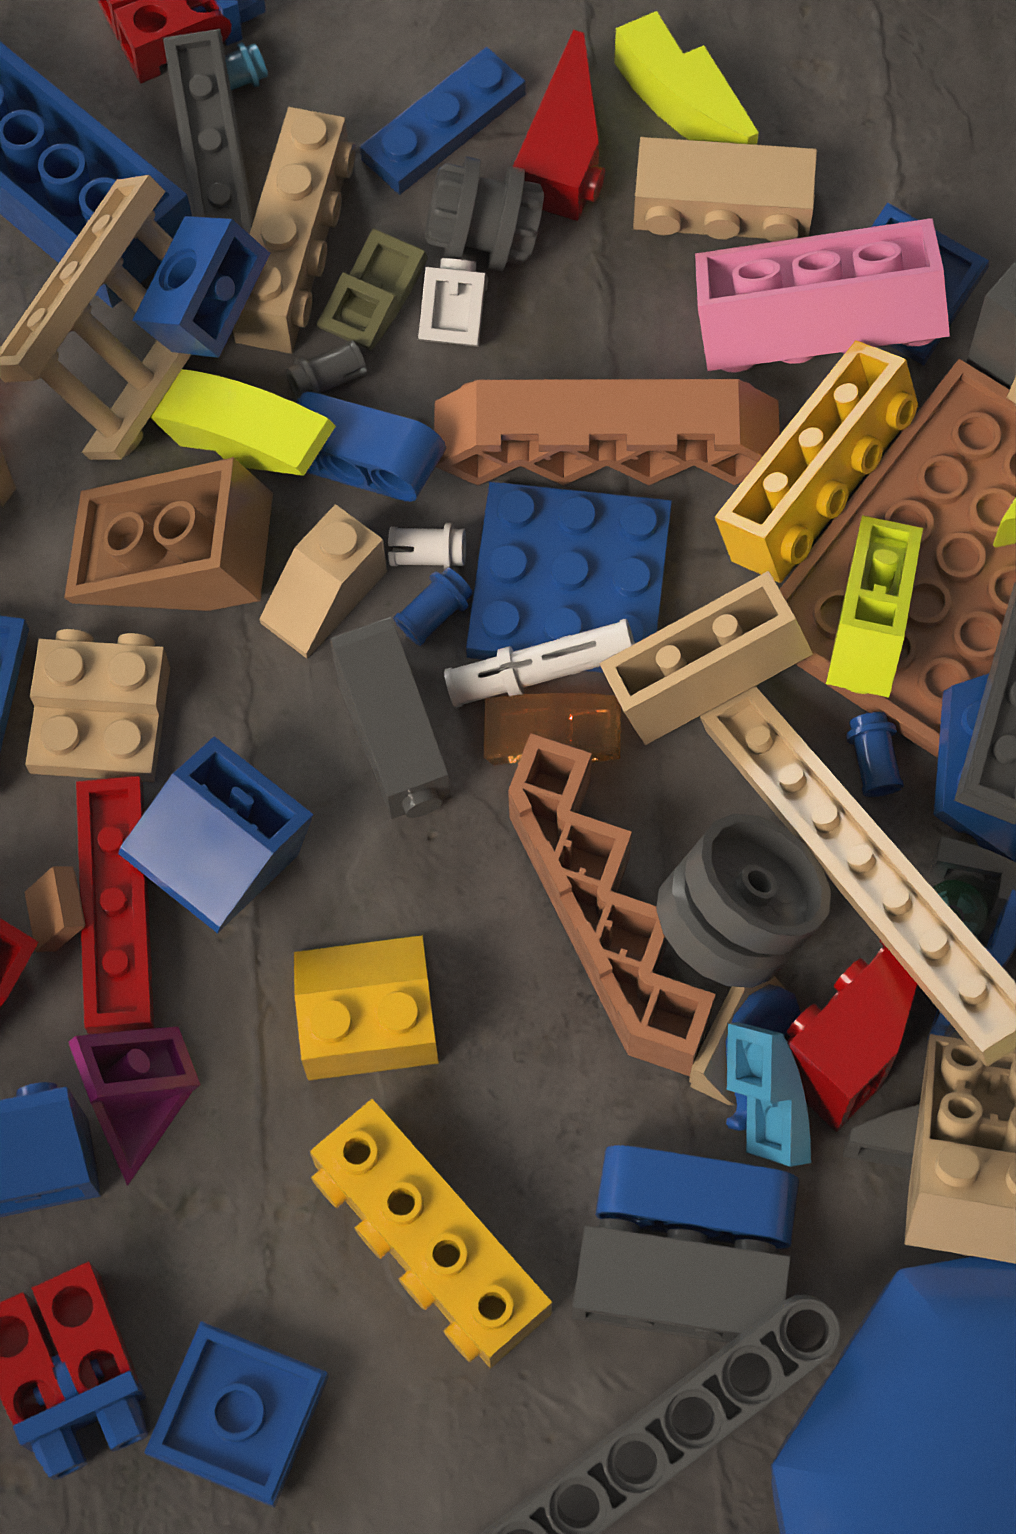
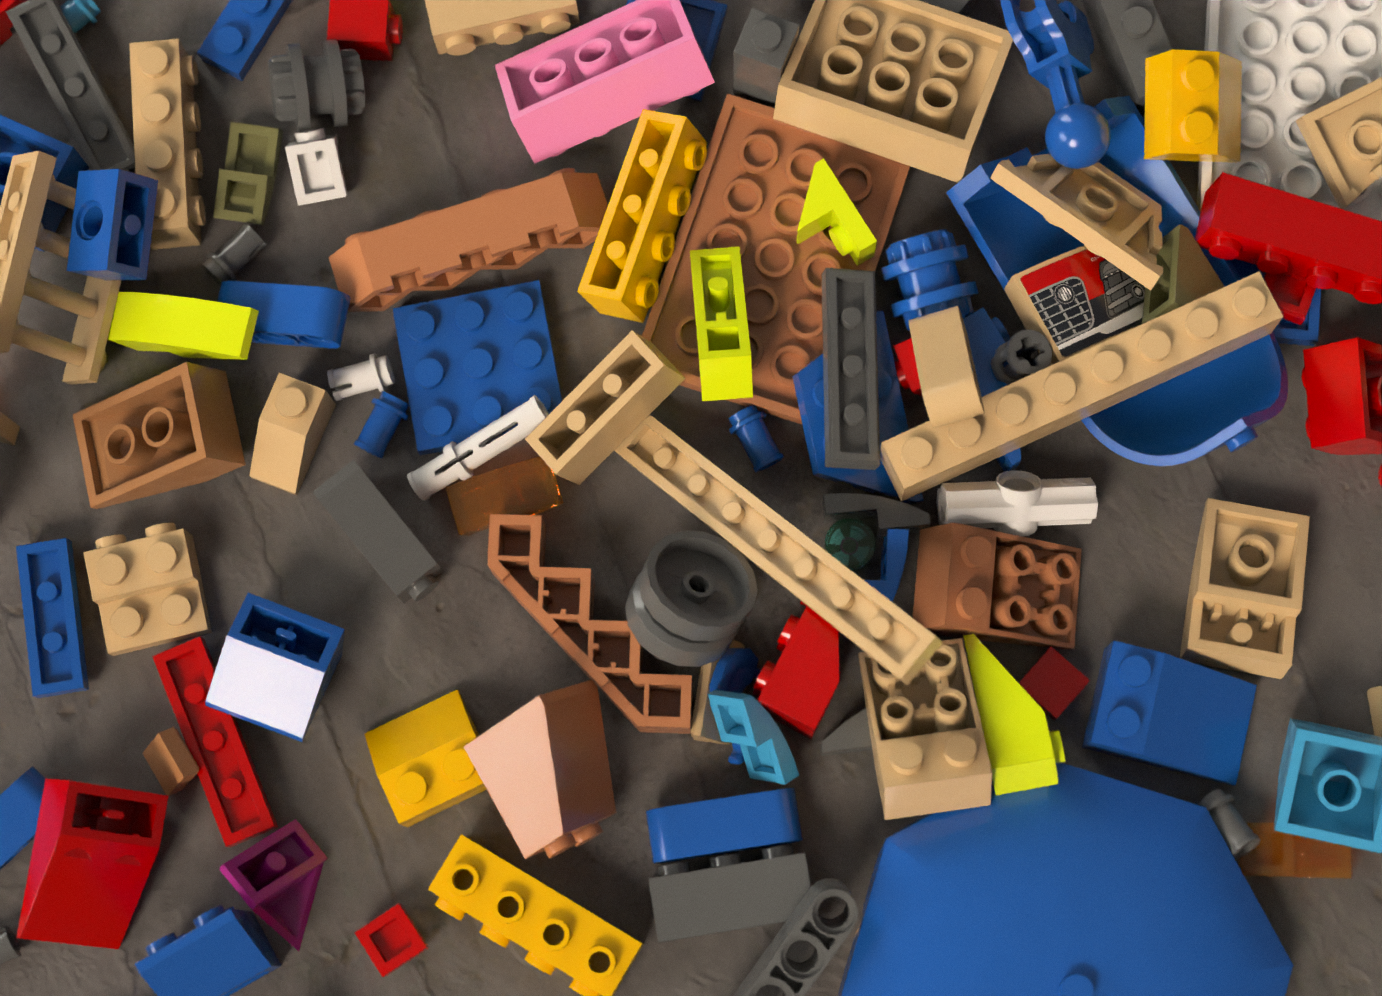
camera: 15 degrees left, 10 degrees up
(244, 1204) = (391, 940): none -> red plate
(505, 1050) = (549, 770): none -> slope

